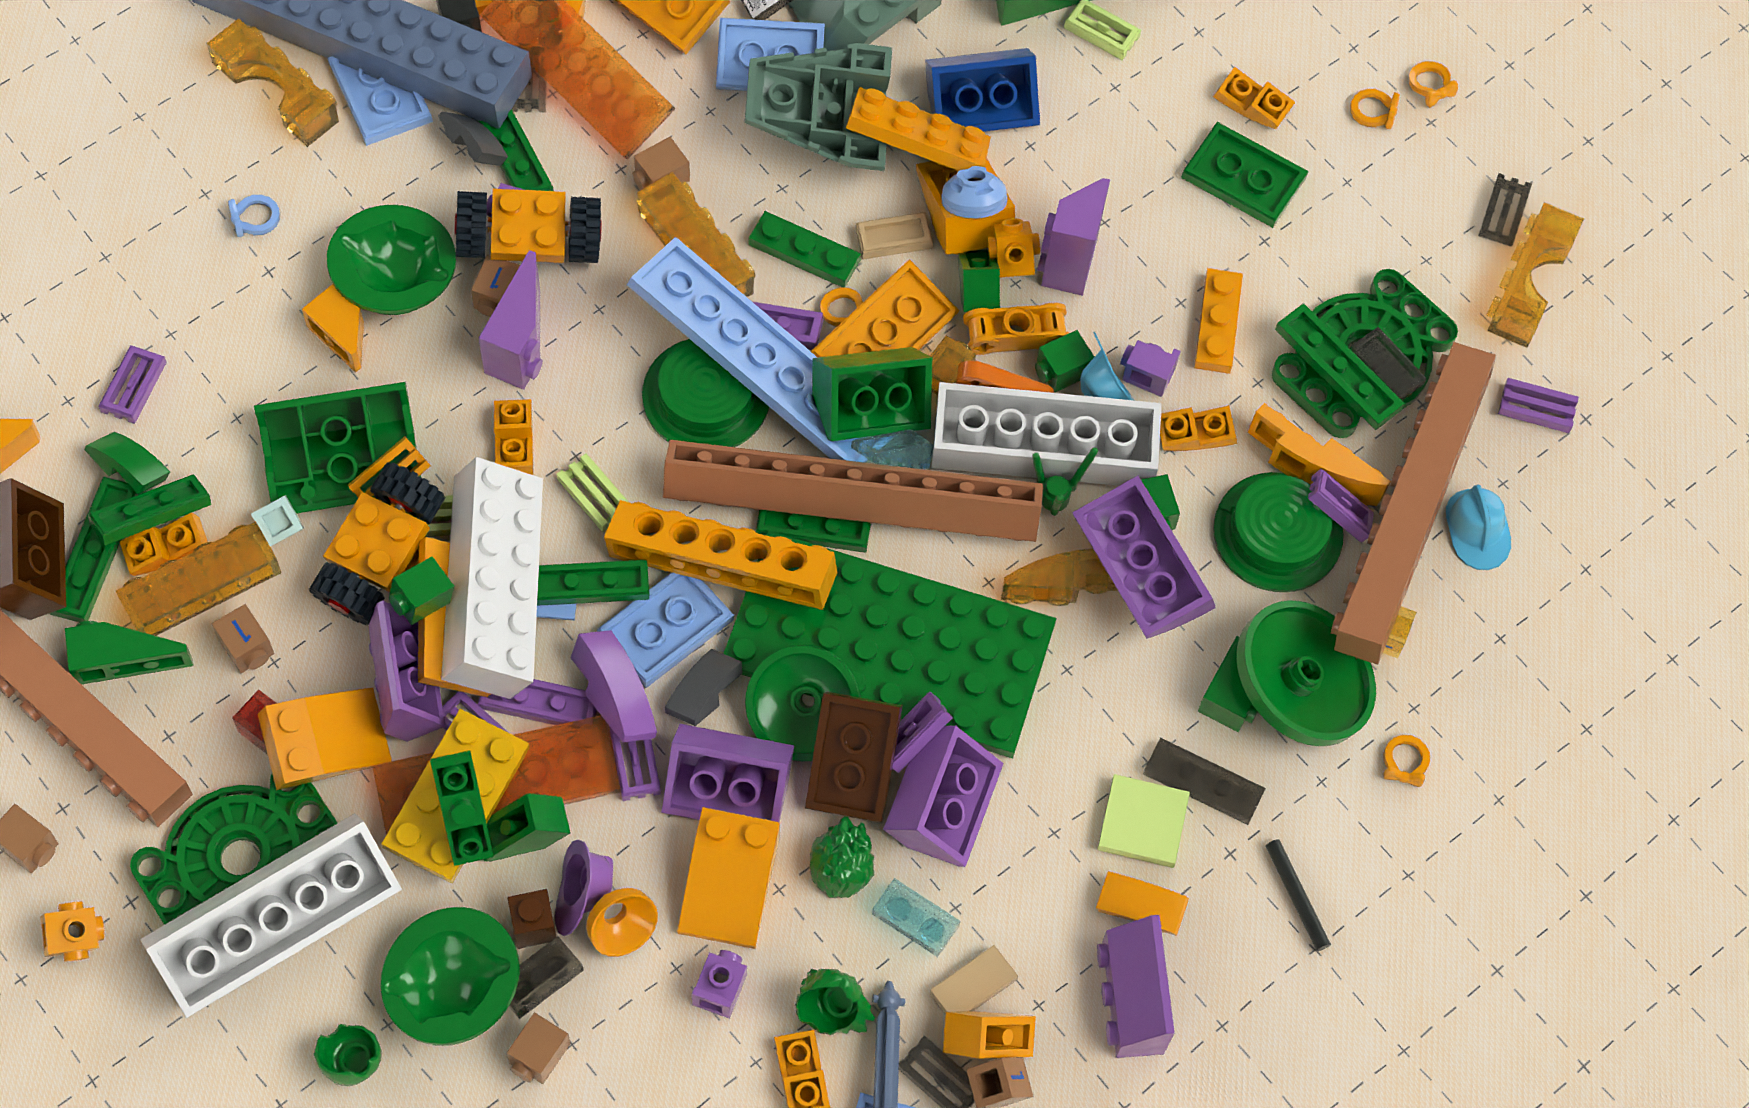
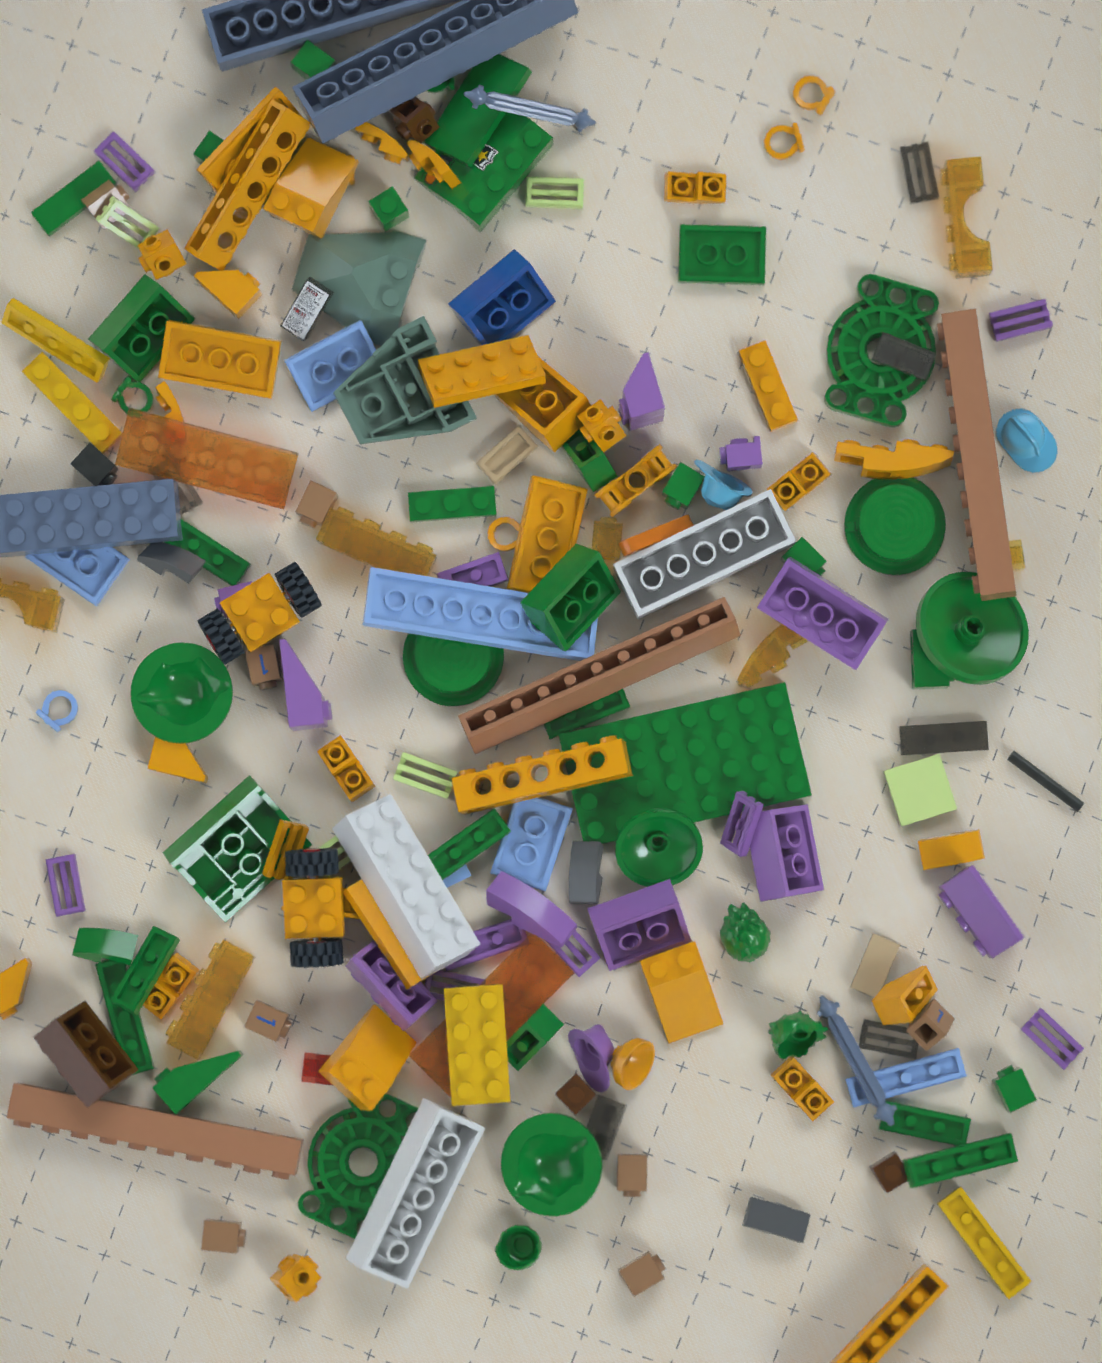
camera: 20 degrees left, 20 degrees up
(277, 520) = (232, 926): light aqua plate -> none
(420, 591) = (373, 933): green brick -> none
(462, 807) = (495, 1061): green slope -> none
(715, 996) = (717, 1074): medium lavender brick -> none
(853, 756) = (713, 866): reddish brown plate -> none
(896, 449) = (613, 614): clear light blue slope -> none
(916, 917) = (813, 945): clear light blue plate -> none
(974, 193) = (557, 411): light blue piece -> none
(1057, 489) = (733, 587): green plant -> none
(1339, 367) = (873, 380): green plate -> none
(1341, 505) = (932, 491): medium lavender tile -> none
(1392, 771) = (1078, 652): light orange piece -> none

